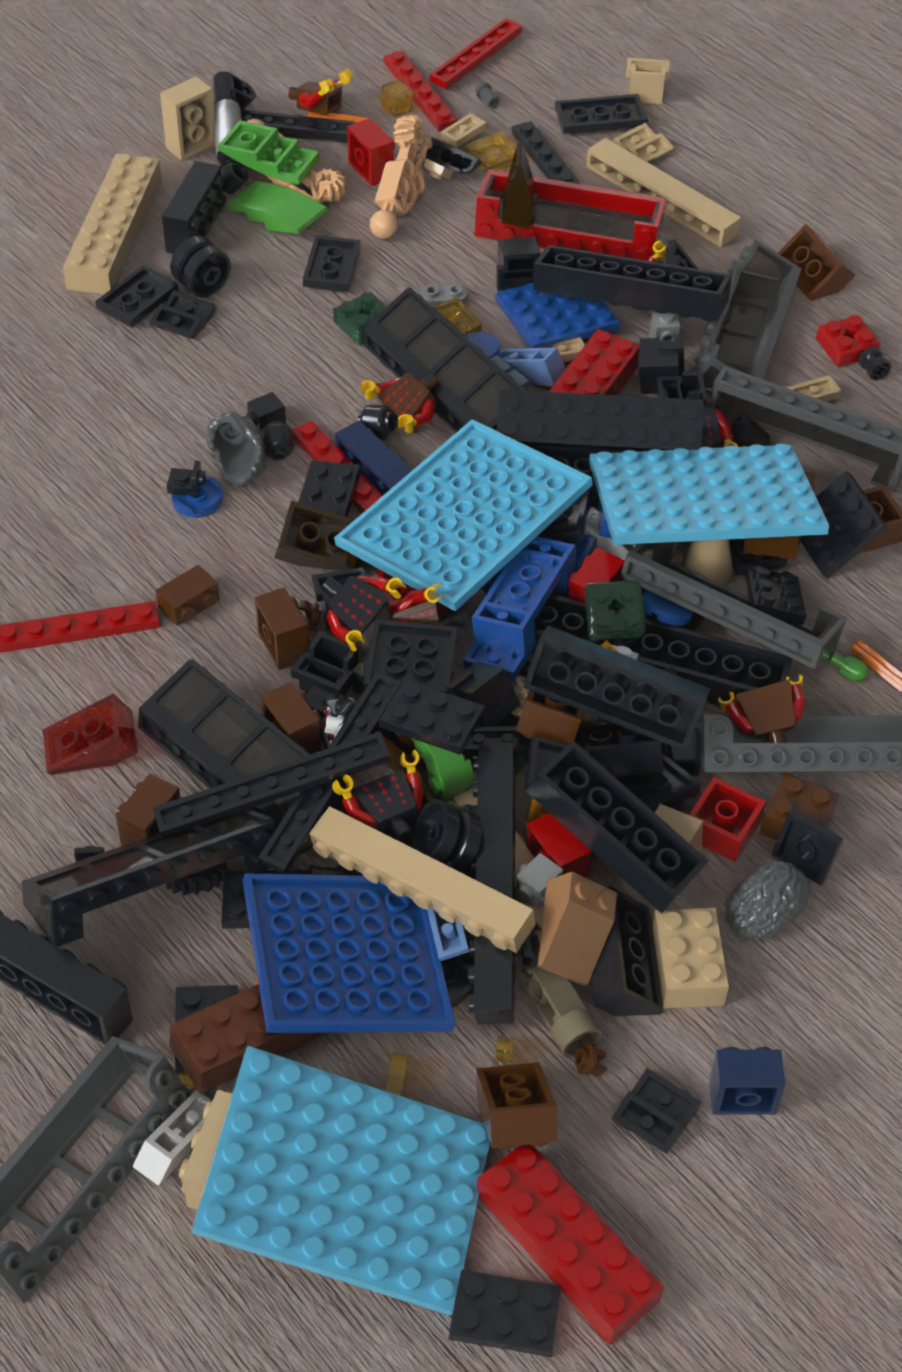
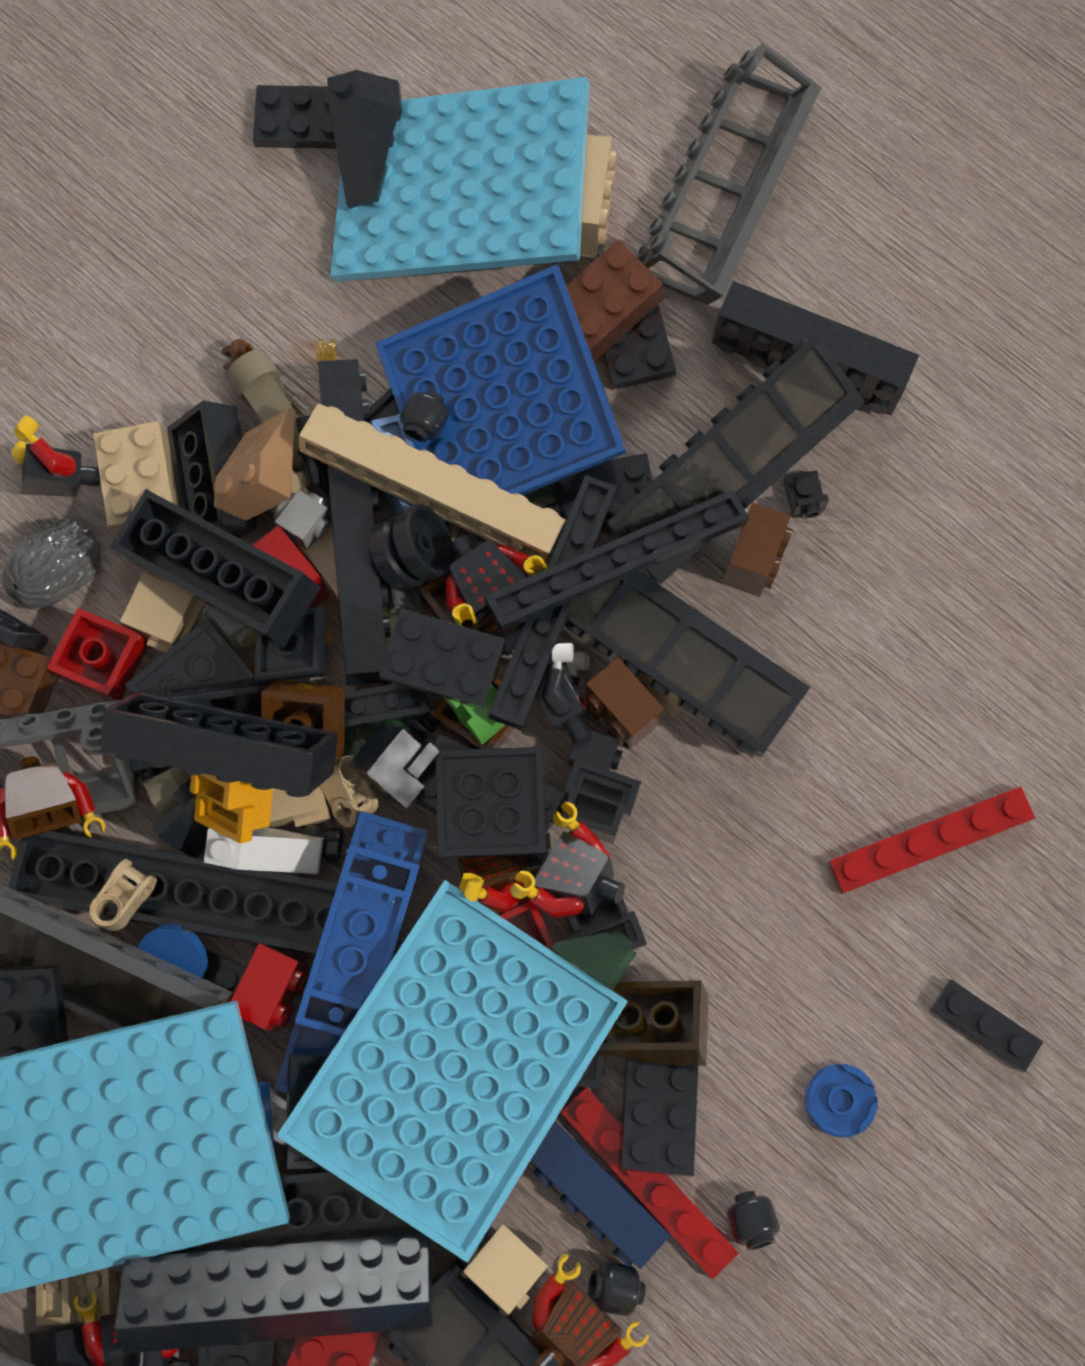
camera: 175 degrees right, 25 degrees up
(80, 521) = (986, 1025): none -> black plate
(91, 737) = (858, 663): clear red slope -> none
(171, 1140) = (635, 209): white slope -> none
(186, 480) = (861, 1111): black bracket -> none
(187, 595) = (804, 904): reddish brown brick -> none
(236, 448) = (803, 1179): dark grey hair -> none
(266, 410) = (784, 1278): black brick -> none
(282, 627) = (666, 852): reddish brown brick -> none
(311, 612) = (638, 900): reddish brown plate -> none
(349, 559) = (599, 955): none -> clear green slope
(397, 1073) = (431, 297): clear yellow beam -> none
(418, 940) = (424, 416): none -> black head
(438, 1252) = (363, 124): none -> black wedge
(444, 422) = (504, 1269): none -> tan plate
(516, 1105) = (304, 270): reddish brown brick -> none
(569, 1241) = (248, 175): red brick -> none
(603, 622) = (254, 921): clear green brick -> none
(657, 1111) = (170, 319): black slope -> none
(701, 634) = (123, 894): none -> tan piece
(746, 1081) = (76, 338): dark blue brick -> none
(770, 963) = (49, 469): none -> torso

